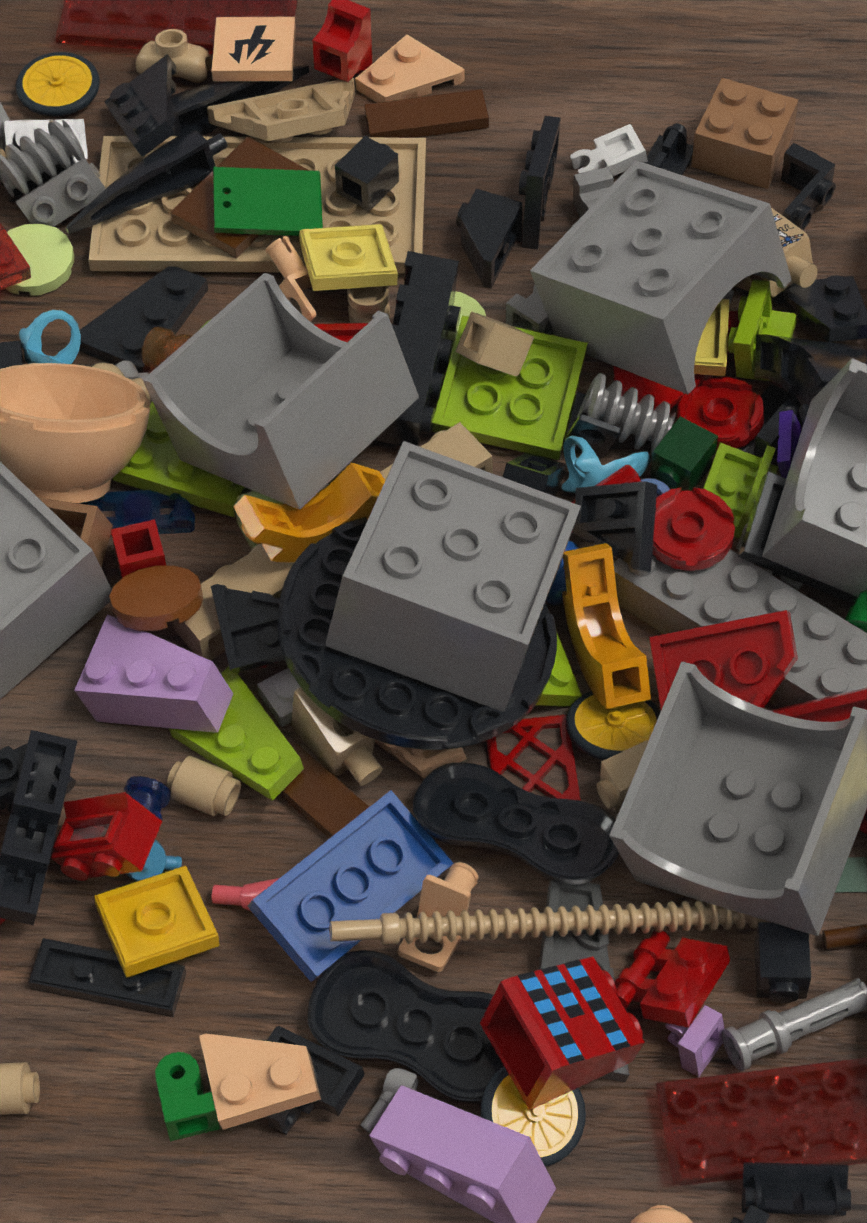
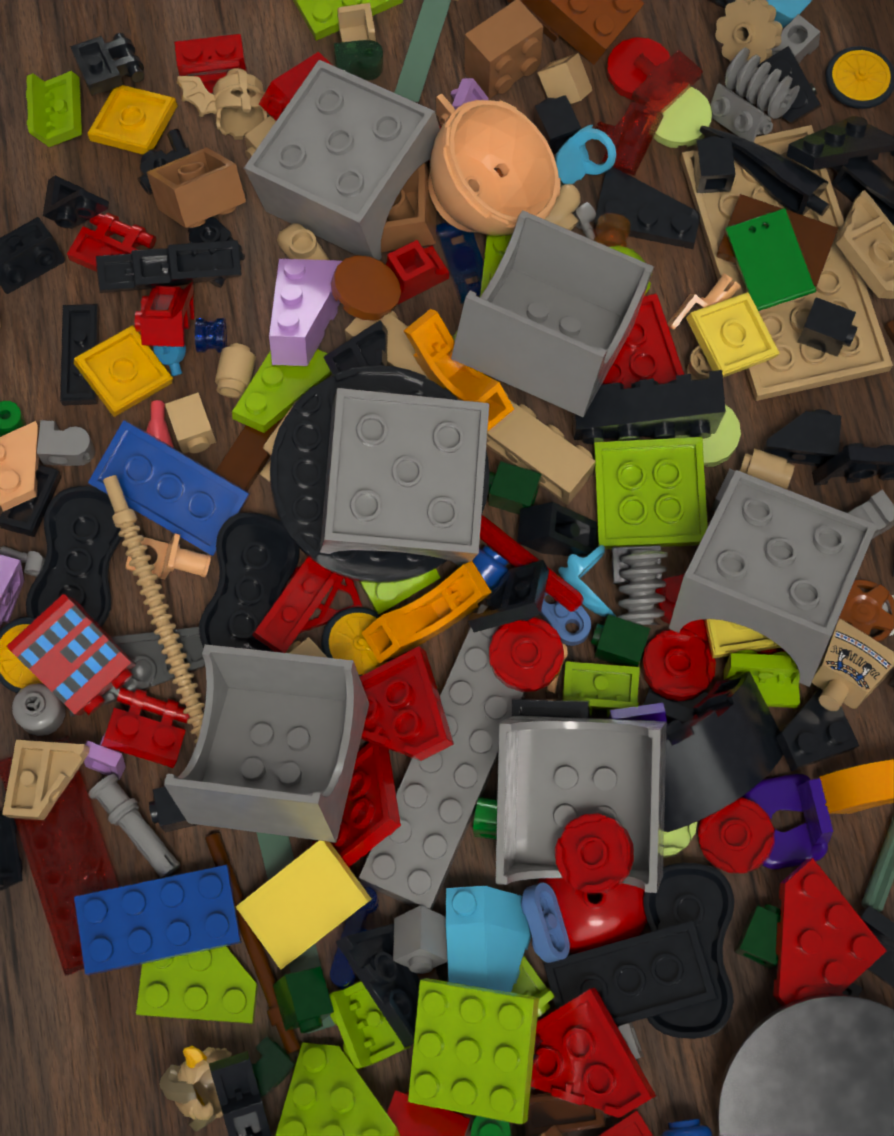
camera: 75 degrees right, 15 degrees up
(41, 292) = (632, 136): none -> clear red plate
(53, 675) = (300, 243): none -> tan piece
(124, 225) = (713, 165): none -> black brick
(244, 1010) = (64, 447): none -> light grey leg
(262, 850) = (190, 424): none -> tan brick
(494, 344) = (673, 466): tan panel -> none
(512, 276) = (768, 468): none -> tan brick
(553, 770) = (295, 606): none -> red plate
(616, 1105) = (37, 719): none -> light grey head
(715, 1108) = (40, 776): none -> tan wing

